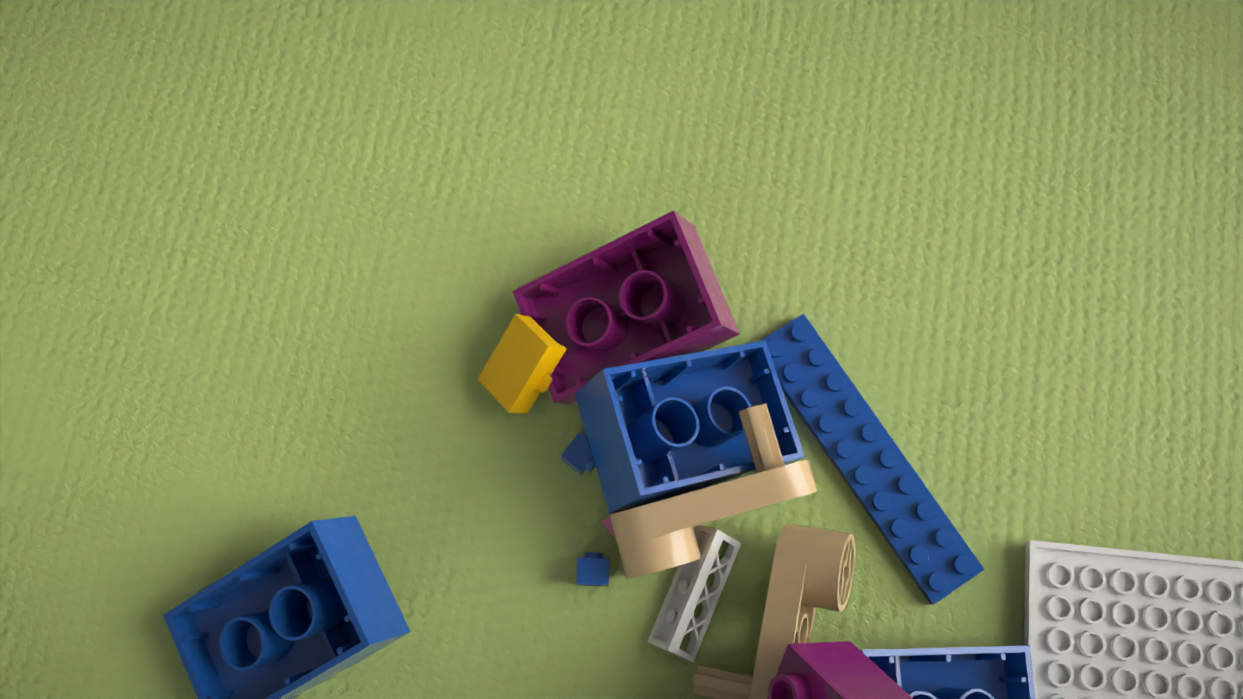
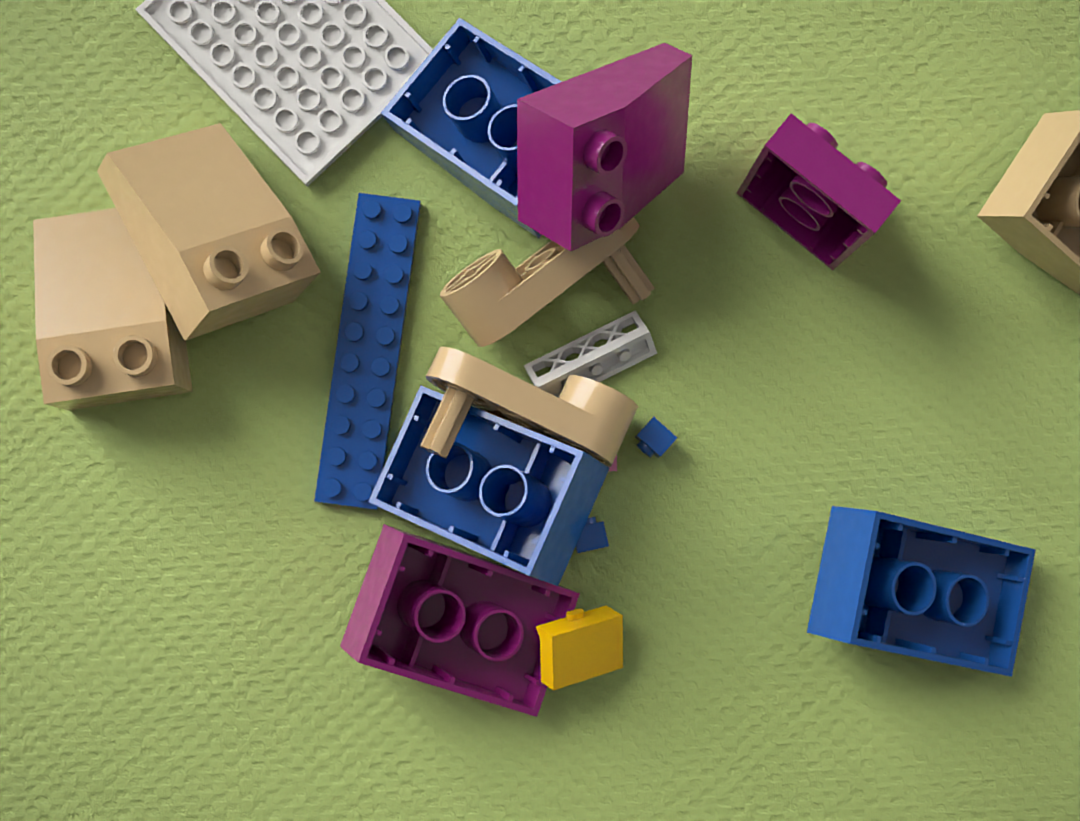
camera: 140 degrees left, 10 degrees up
(1069, 436) = (207, 229): none -> tan slope
(1078, 324) = (101, 316): none -> tan slope

